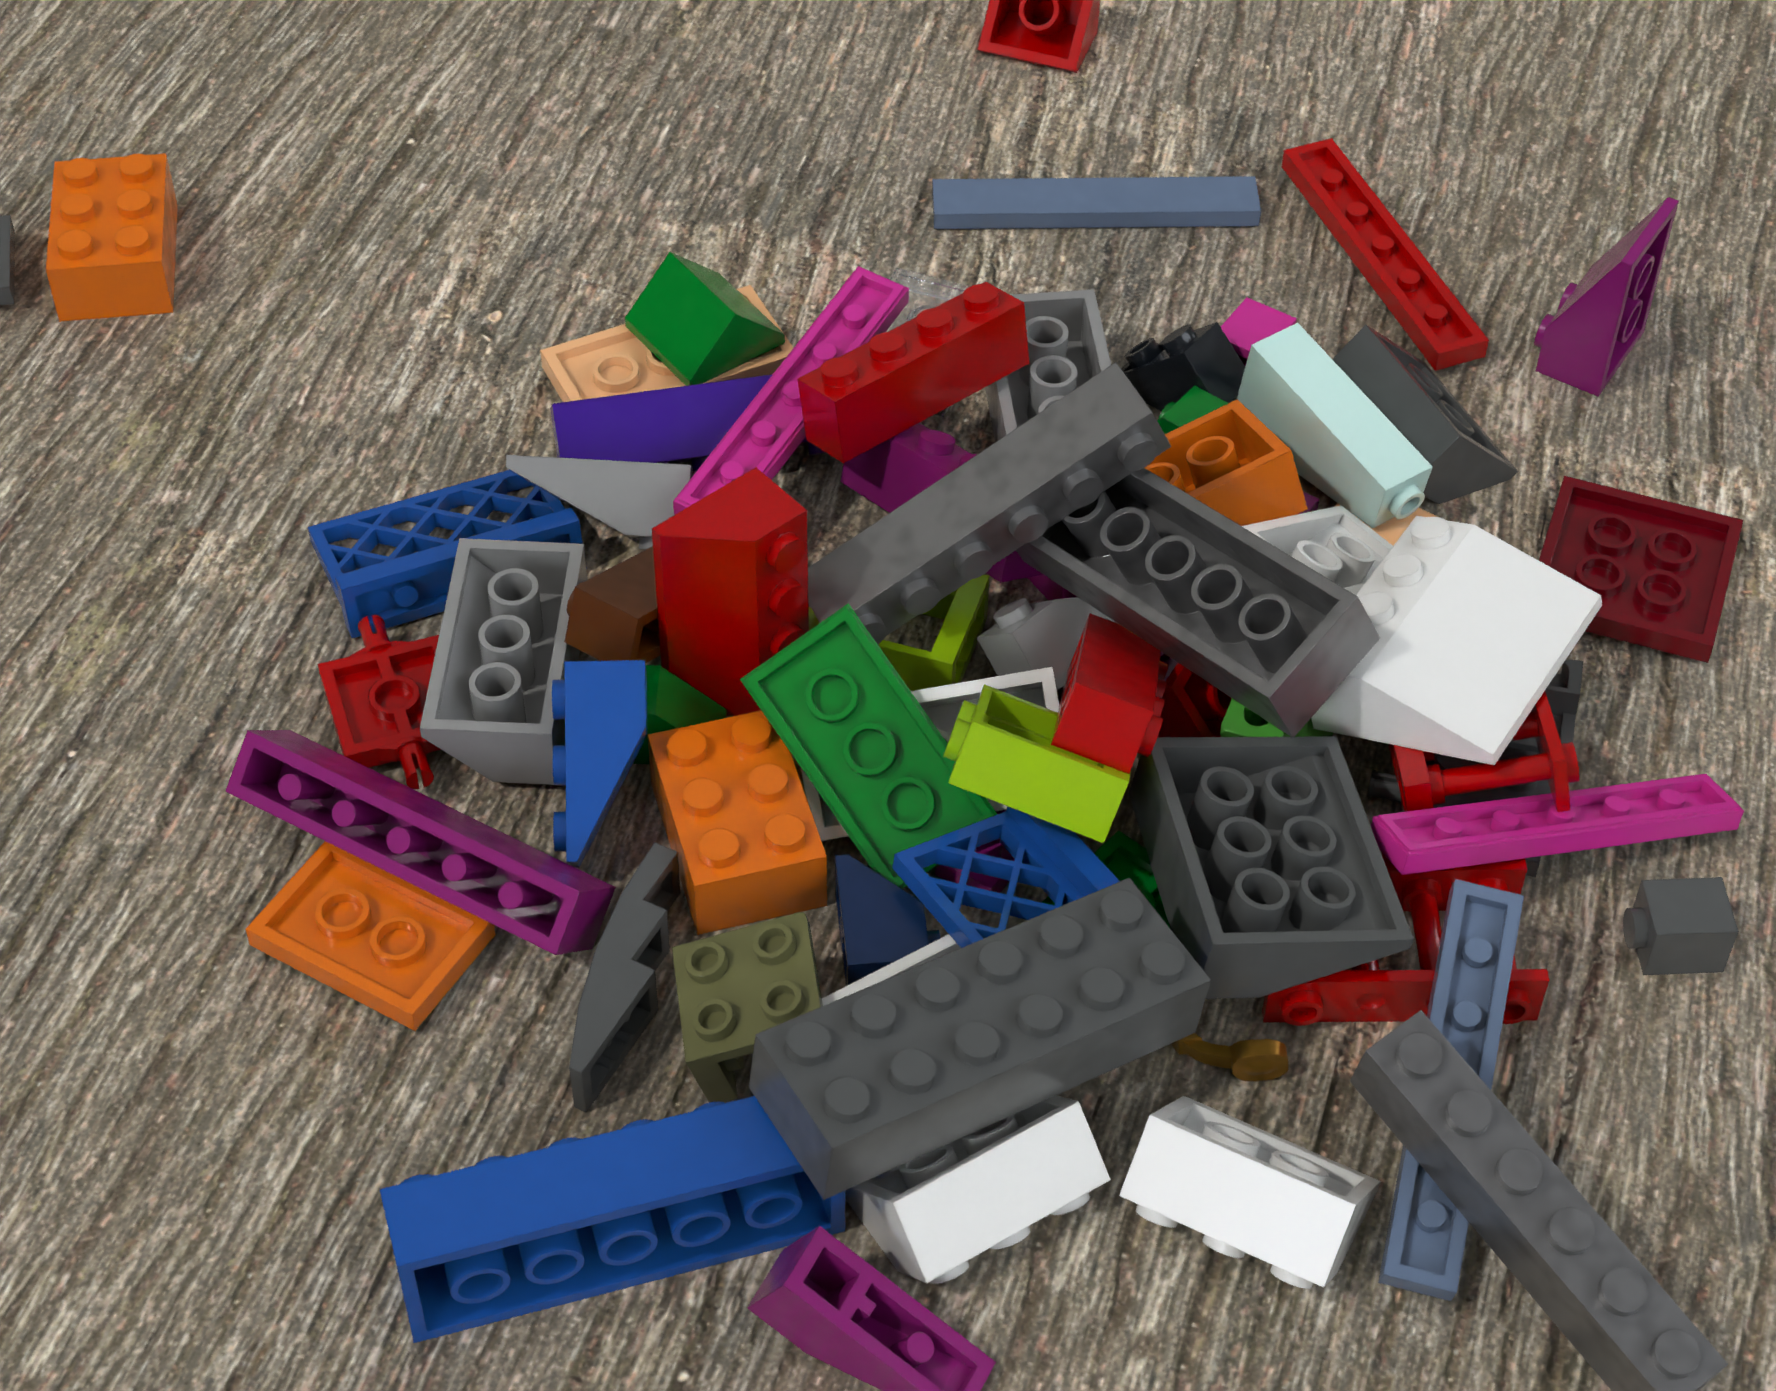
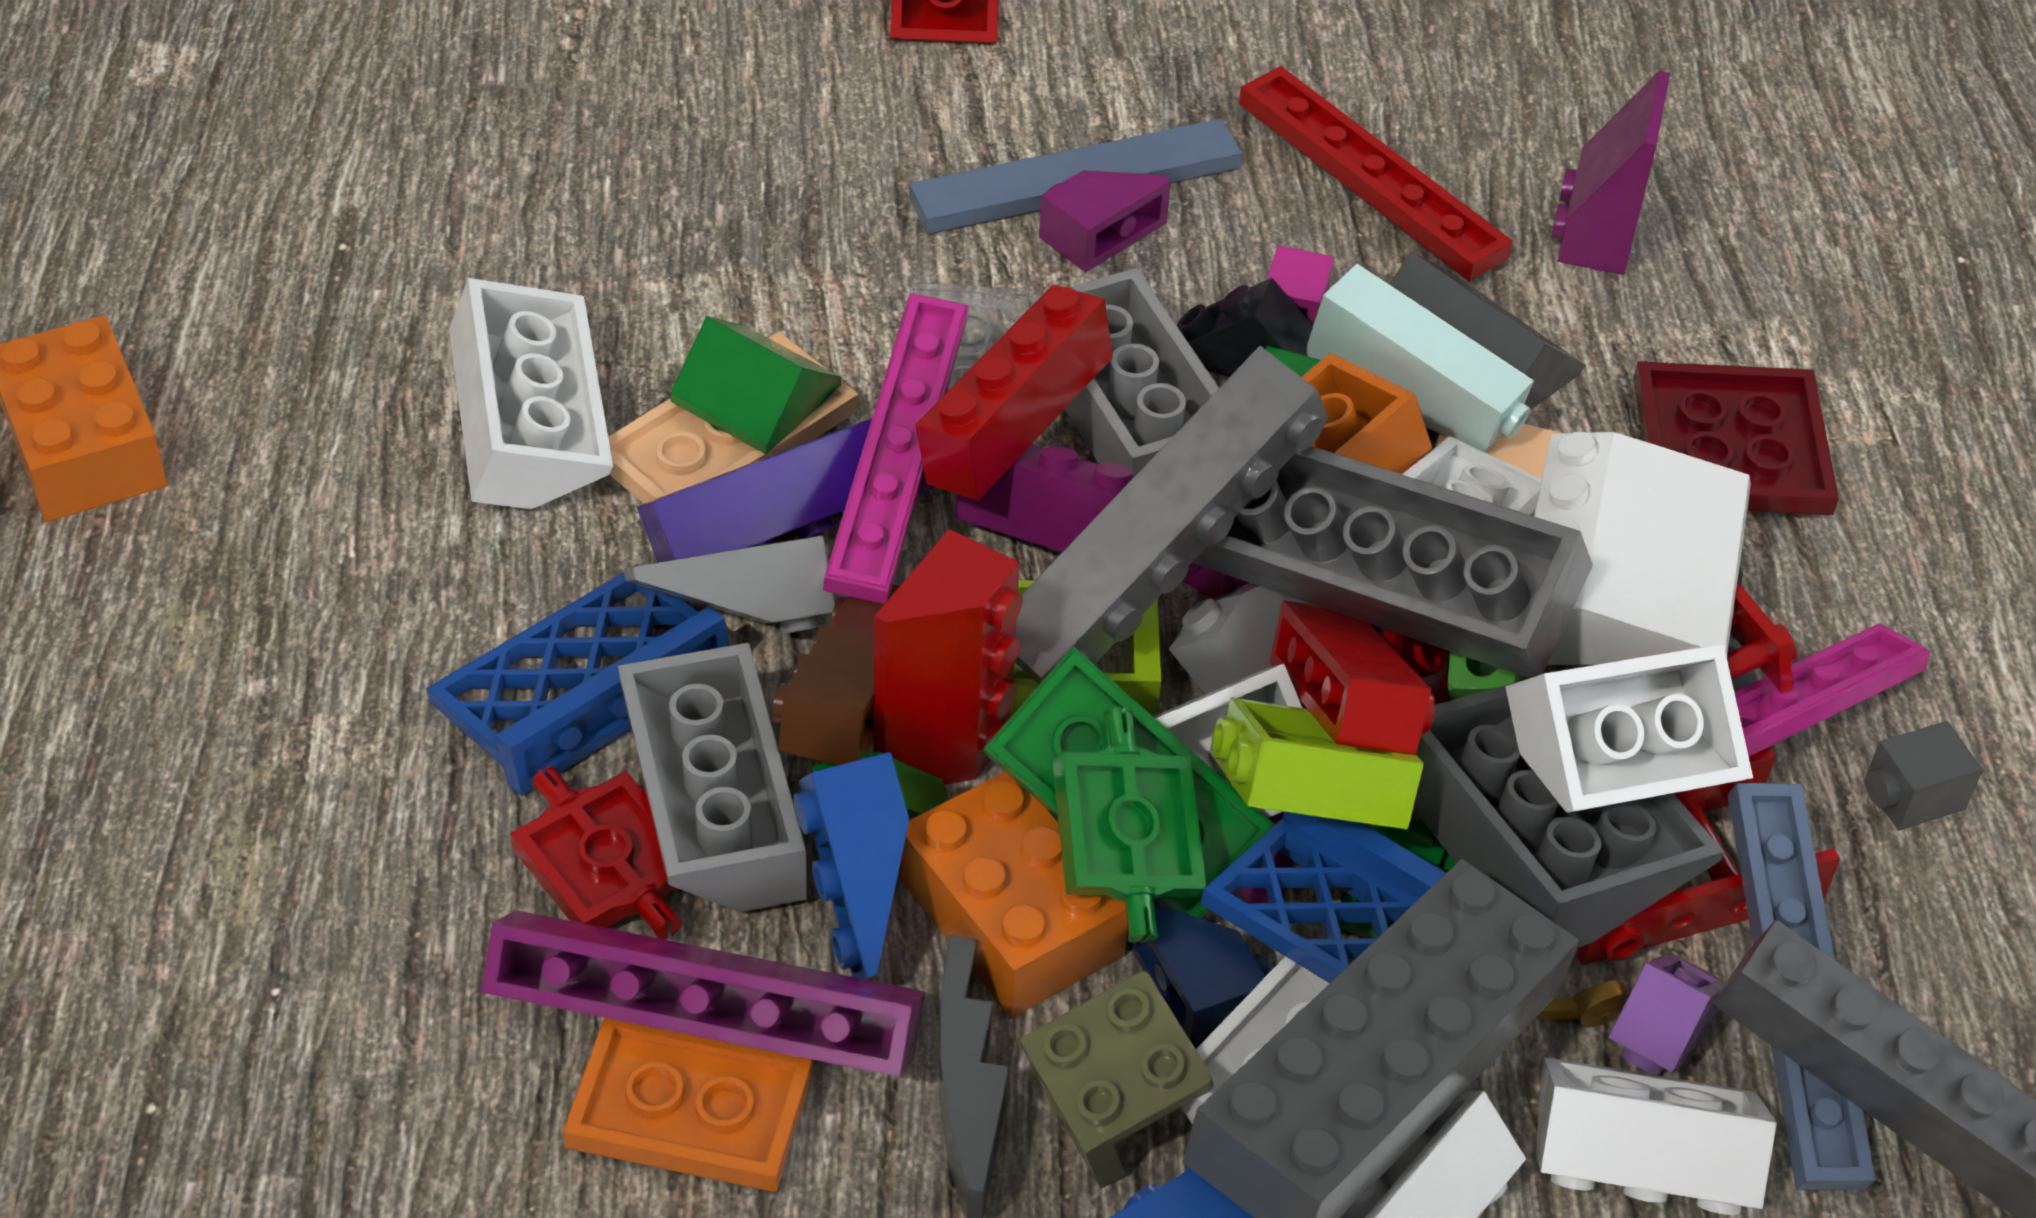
camera: 20 degrees left, 0 degrees up
(501, 293) = (527, 394): none -> white slope
(844, 778) = (1128, 824): none -> green plate
(1100, 240) = (1102, 214): none -> magenta slope
(1307, 1083) = (1666, 1014): none -> medium lavender slope
(1362, 799) = (1631, 728): none -> white slope

